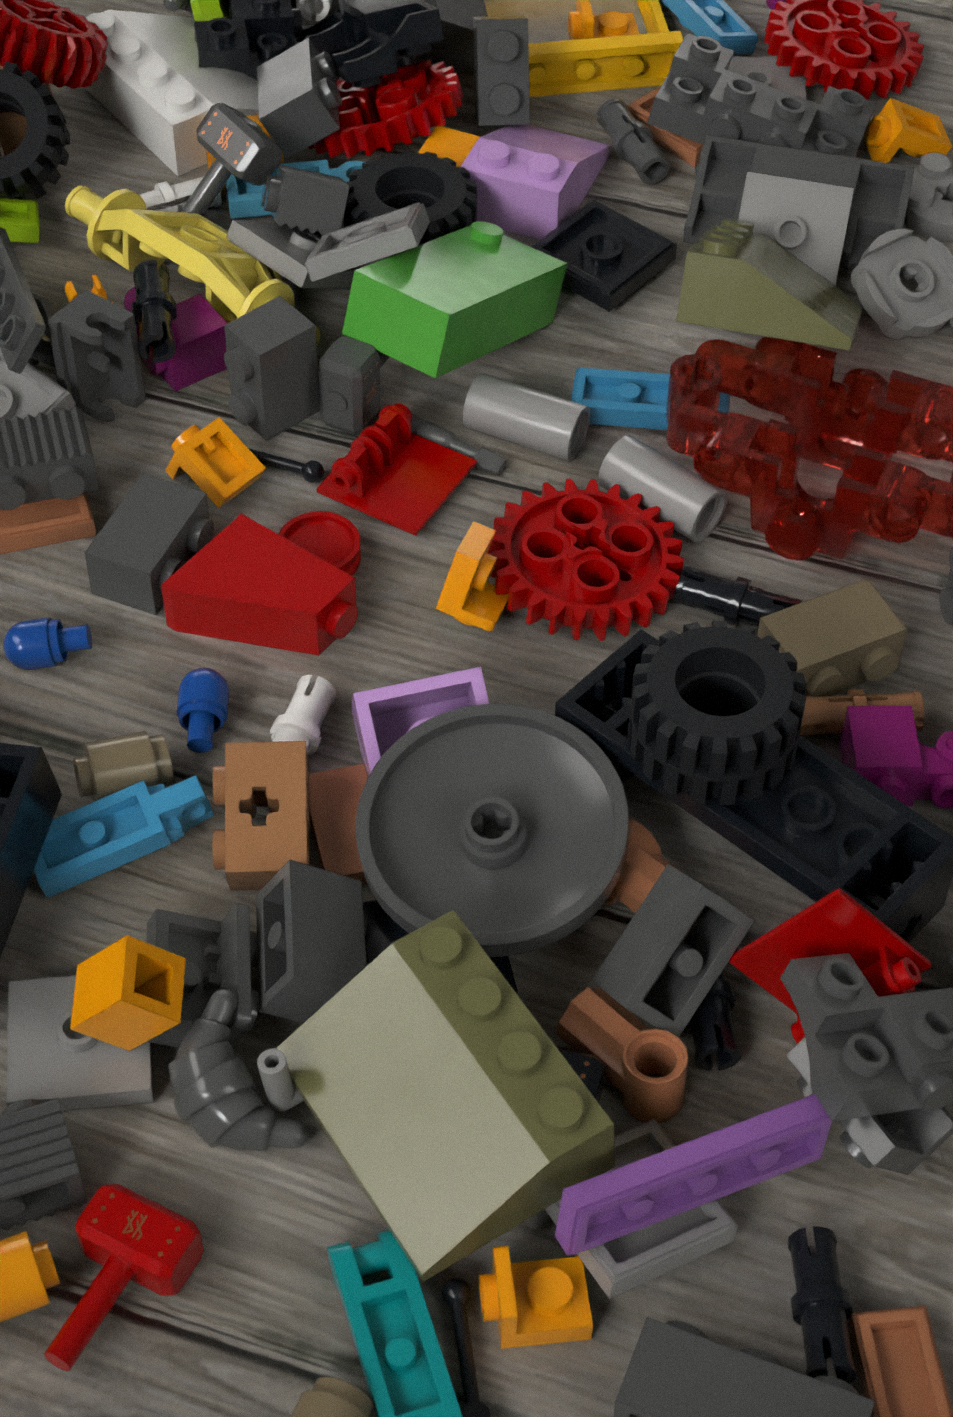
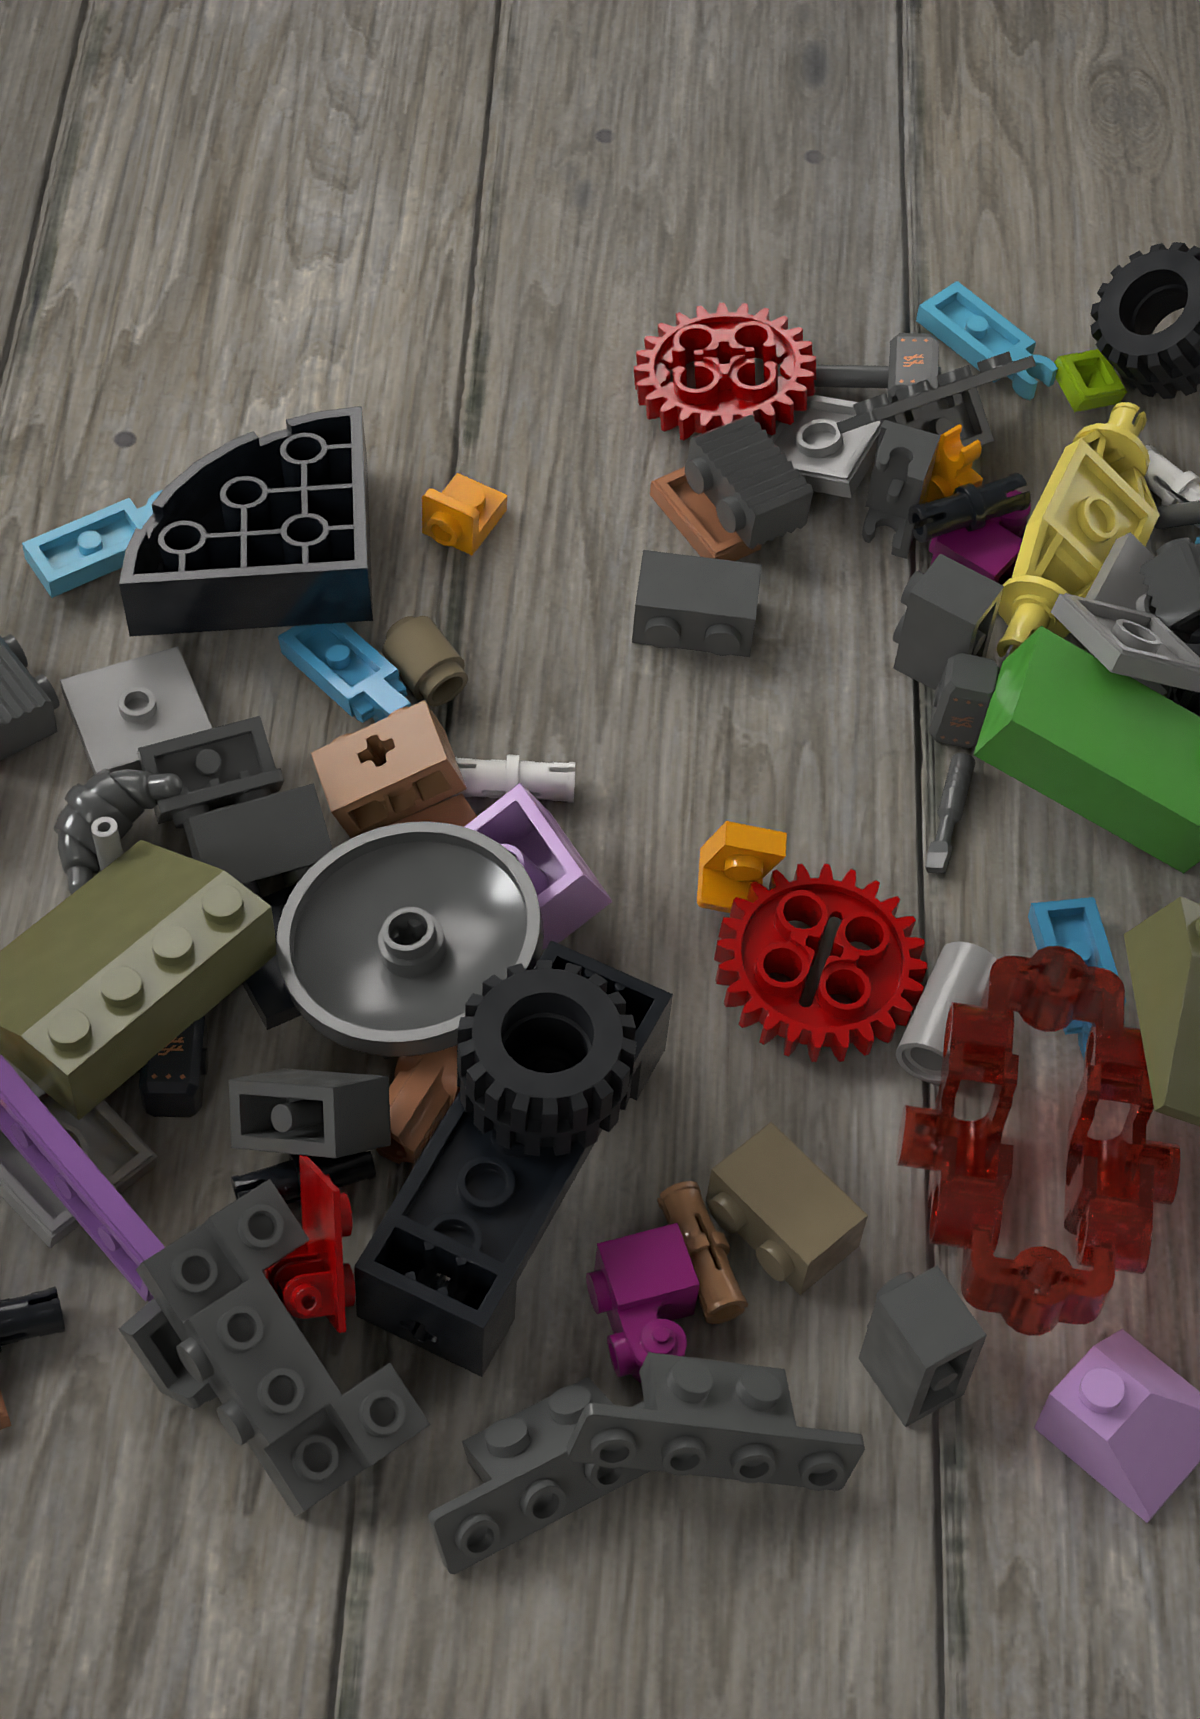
camera: 70 degrees right, 5 degrees up
(44, 642) = (554, 565): blue cylinder -> none
(128, 993) = (150, 712): light orange brick -> none
(202, 707) = (519, 699): blue cylinder -> none
(215, 461) = (823, 625): light orange bracket -> none
(260, 592) = (671, 703): red slope -> none
(311, 471) = (863, 638): black hinge -> none
(327, 537) = (755, 742): red piece -> none
(396, 473) = (880, 779): red hinge -> none
(526, 416) = (1001, 868): light grey pin -> none
(630, 1051) = (206, 1118): nougat piece -> none
(728, 598) = (823, 1112): black pin -> none

